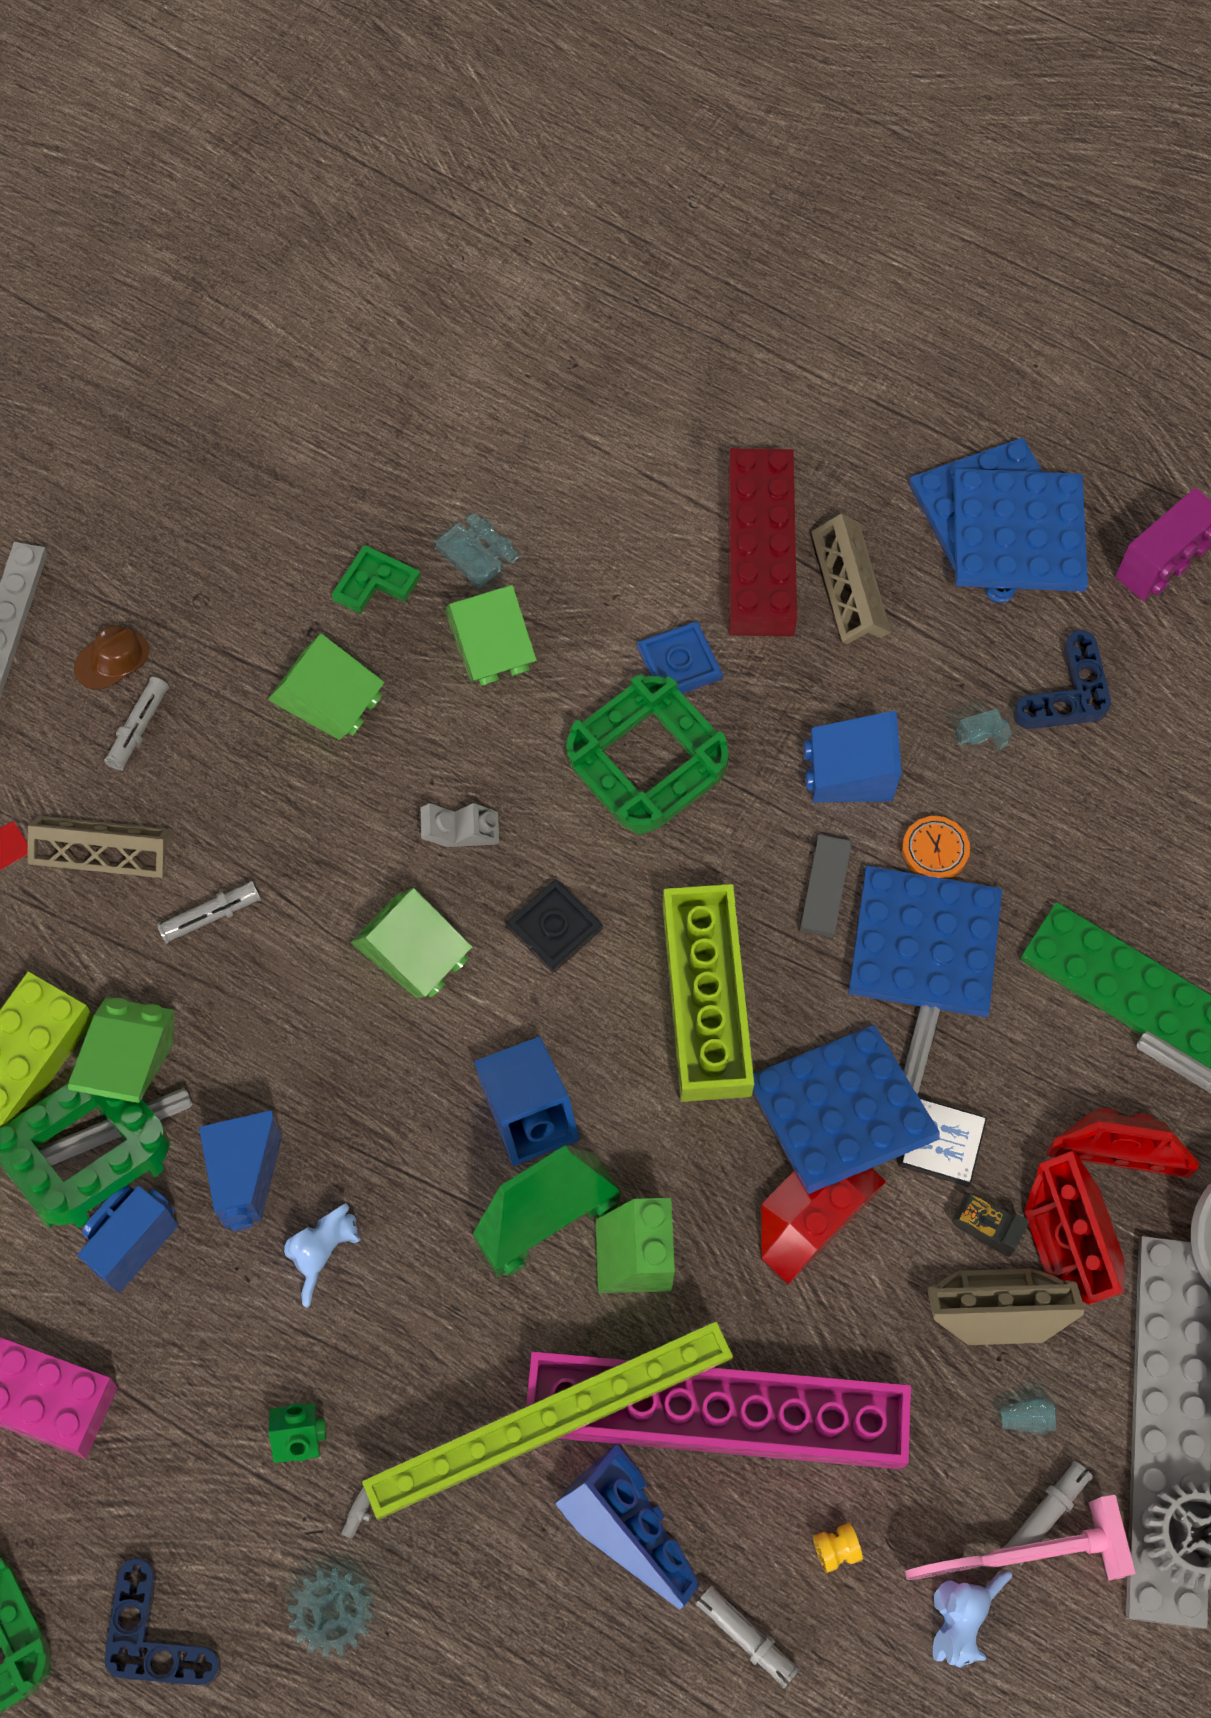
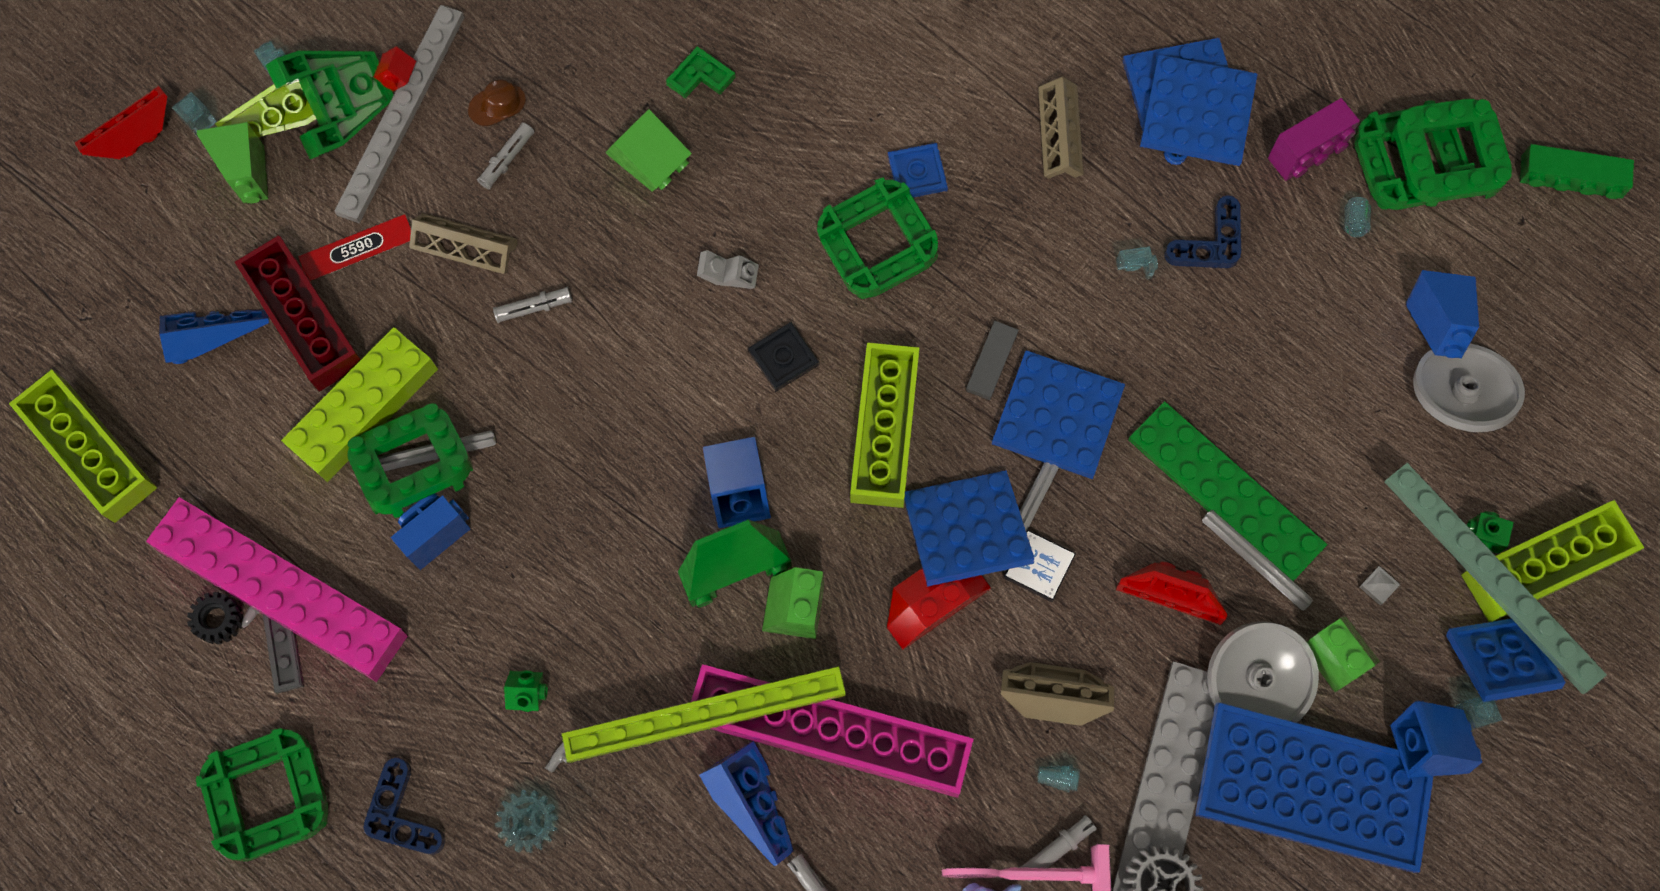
camera: 15 degrees right, 5 degrees up
(123, 1049) = (451, 395): bright green slope -> none
(240, 1166) = (520, 494): blue slope -> none
(314, 1246) = (562, 561): light blue animal -> none
(413, 944) = (676, 353): bright green slope -> none
(470, 556) = (774, 65): clear light blue plate -> none
(491, 635) = (778, 130): bright green slope -> none
(761, 542) = (997, 89): dark red brick -> none
(835, 1548) = (898, 844): yellow wheel -> none
(854, 760) = (1032, 268): blue slope -> none
(935, 847) = (1082, 345): orange tile -> none
(990, 1224) = (1060, 632): pearl dark grey leg -> none
(1075, 1229) = (1123, 647): red wedge -> none

